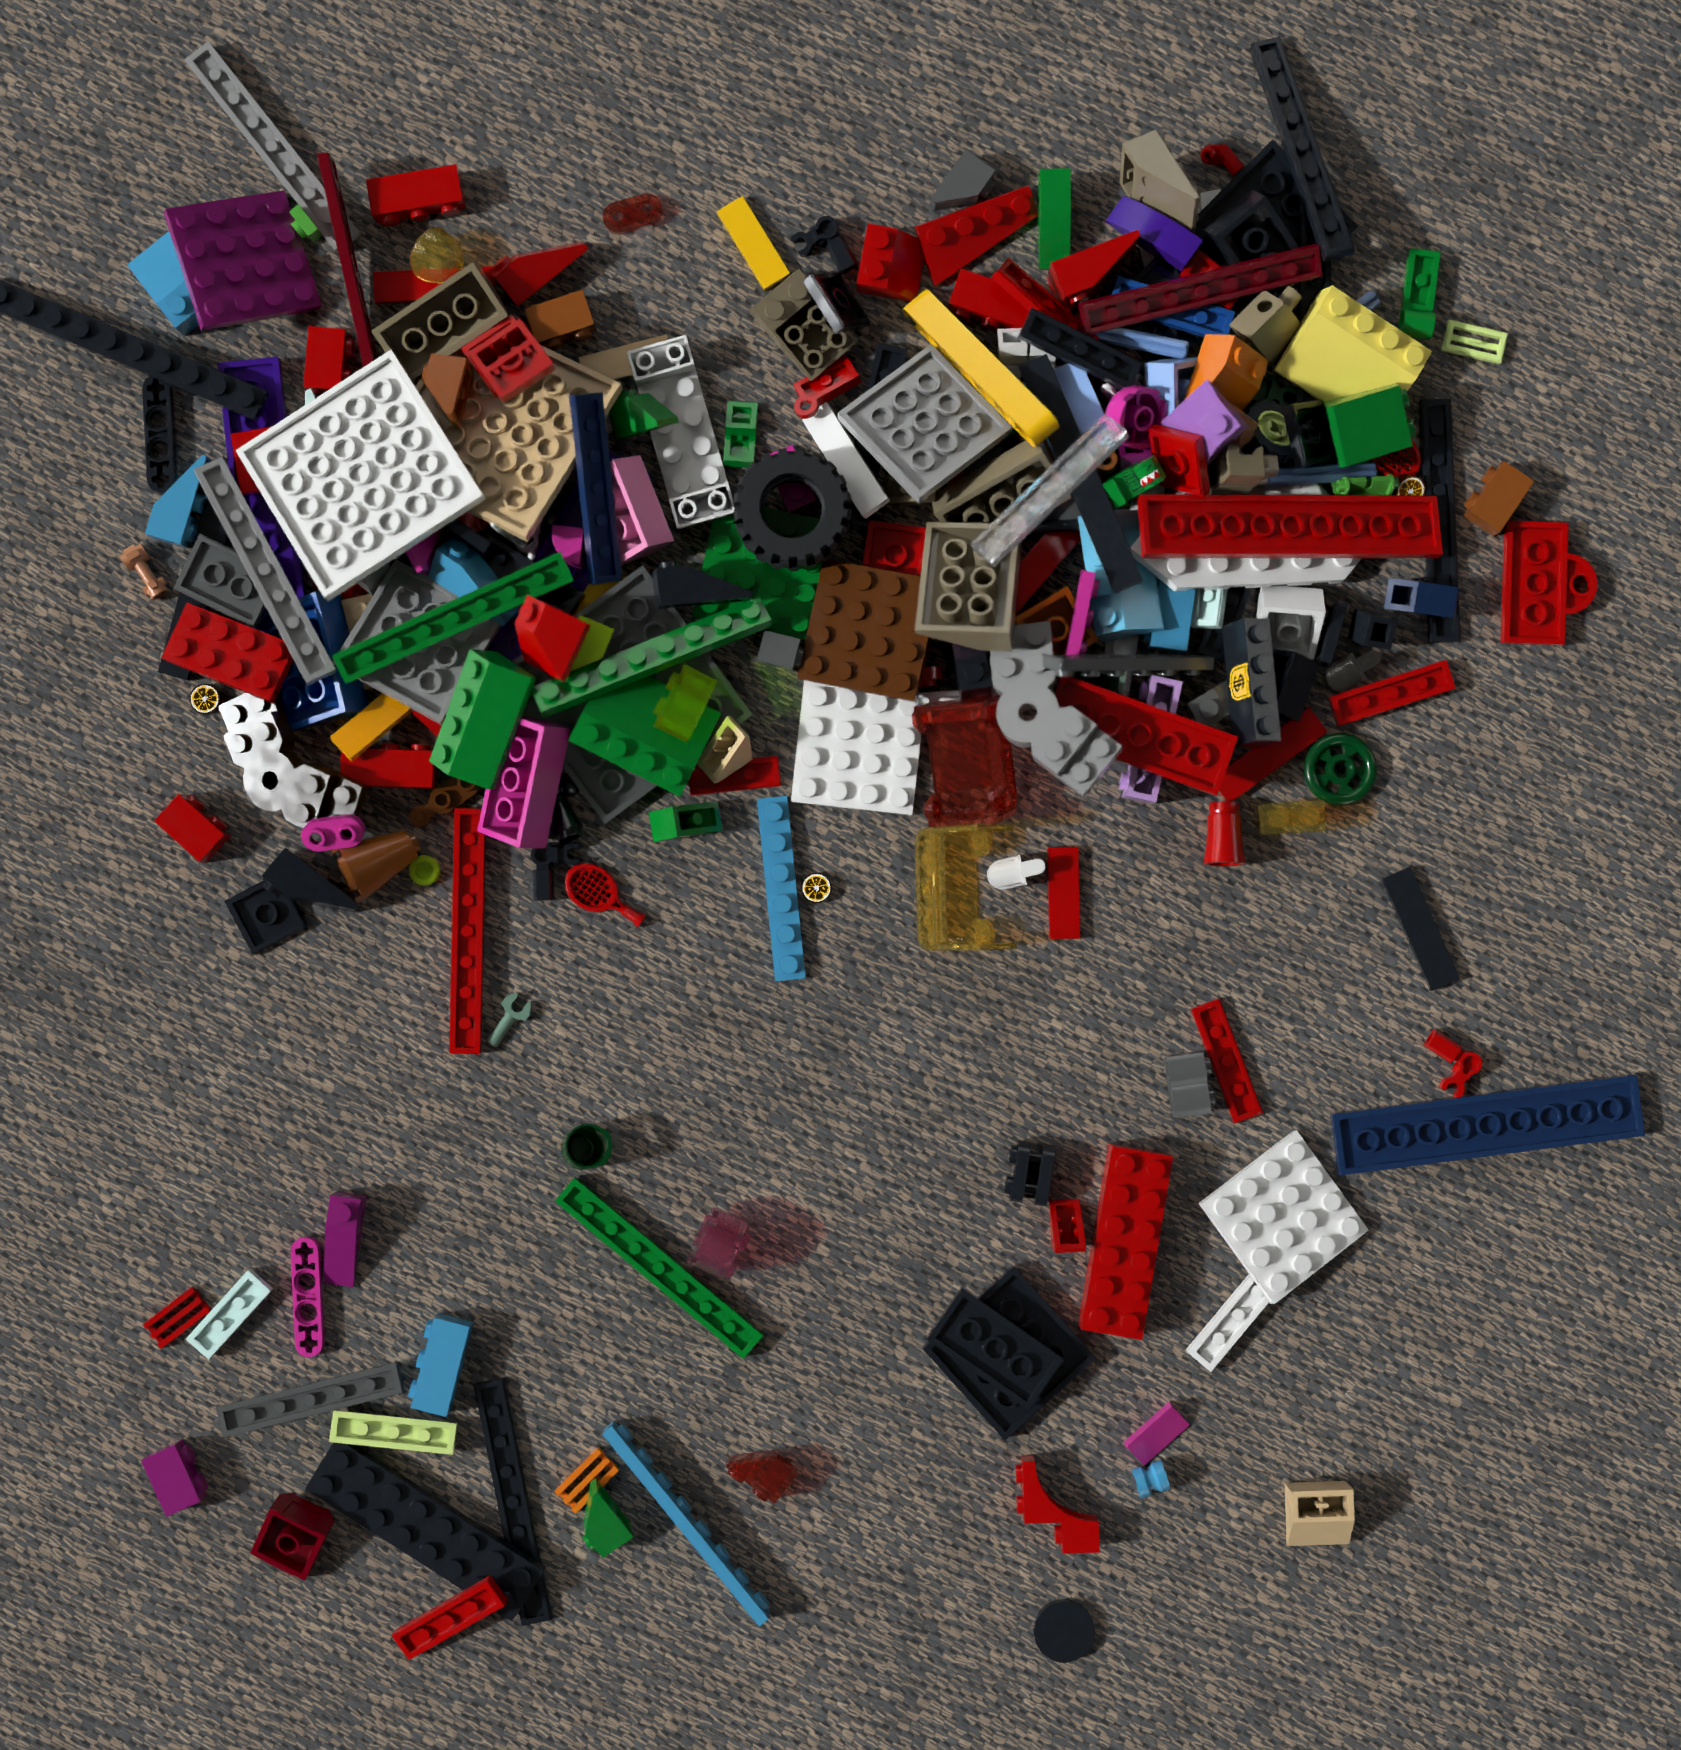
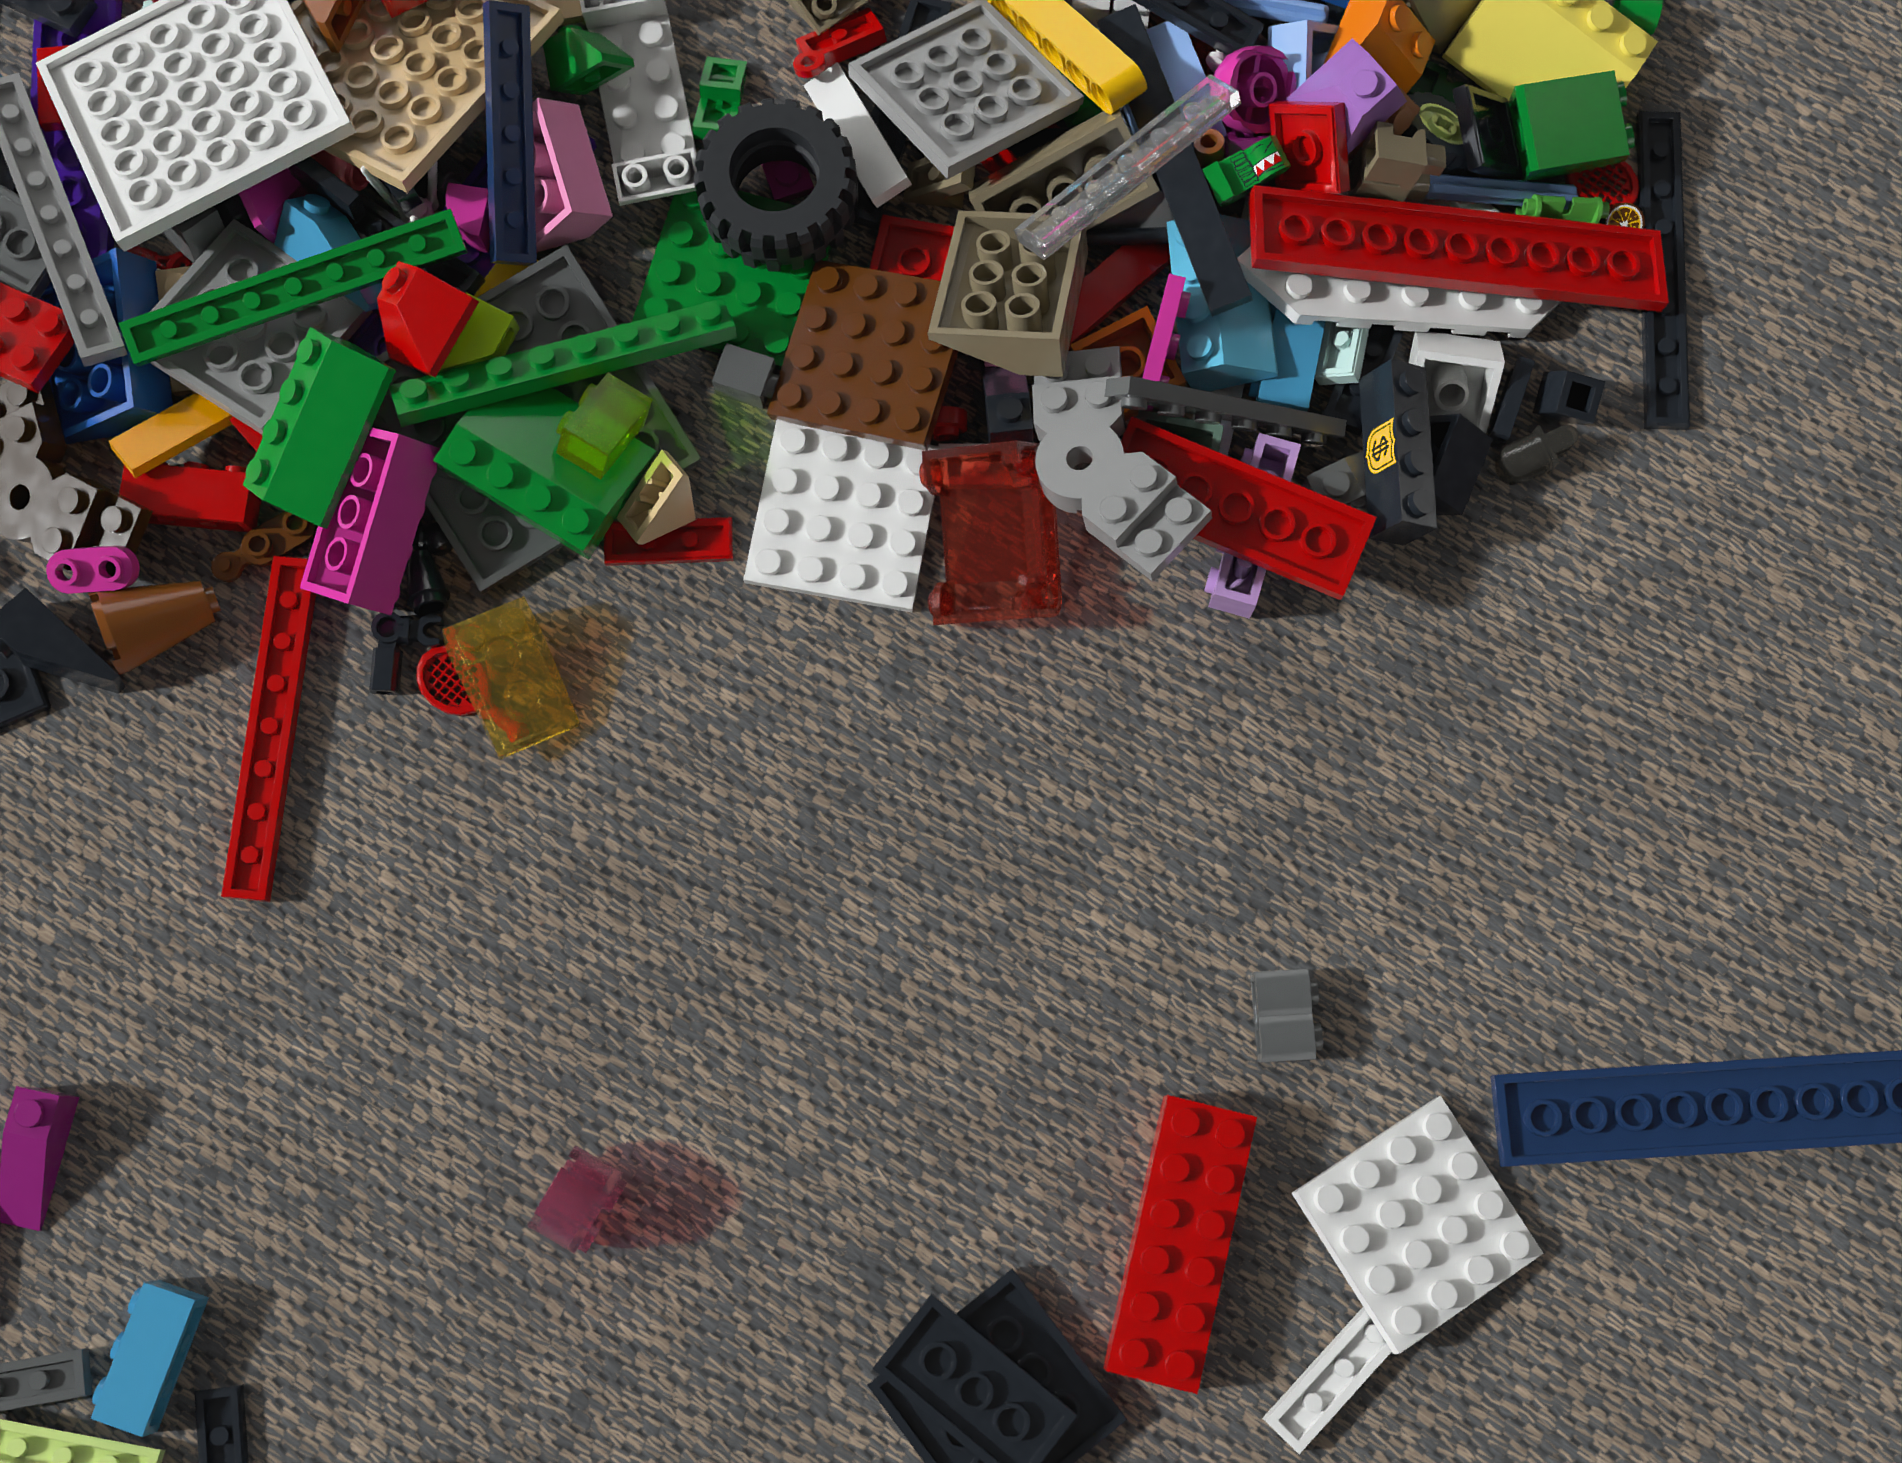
camera: 10 degrees right, 10 degrees down
(425, 870) = (223, 641): lime tile -> none
(509, 1018) = (316, 854): sand green bar -> none
(586, 1141) = (387, 1054): dark green helmet -> none
(634, 886) = (510, 677): none -> clear yellow slope
(659, 1267) = (490, 1234): green plate -> none
(685, 821) = (592, 595): green slope -> none
(686, 587) = (627, 276): black slope -> none
(781, 888) = (719, 700): dark azure plate -> none
(816, 887) = (769, 701): tile -> none
(949, 888) = (957, 706): clear yellow windscreen -> none
(1011, 872) = (1050, 696): white arm -> none
(1021, 1156) = (1033, 1106): black brick -> none
(1063, 892) = (1118, 732): red tile -> none
(1066, 1226) = (1094, 1213): red slope -> none
(1224, 835) = (1350, 667): red plant -> none
(1226, 1060) = (1341, 988): red tile -> none
(1264, 760) = (1418, 563): red tile -> none
(1291, 817) = (1447, 646): clear yellow brick -> none
(1345, 794) = (1533, 556): dark green plate -> none
(1391, 693) = (1592, 488): red plate -> none
(1420, 928) = (1627, 817): black tile -> none
(1421, 598) = (1637, 358): dark blue slope -> none
(1448, 337) = (1709, 58): yellowish green tile -> none
(1466, 1063) = (1691, 1015): red bar -> none
(1497, 498) = (1744, 240): dark orange brick -> none
(1540, 583) = (1802, 357): red plate -> none

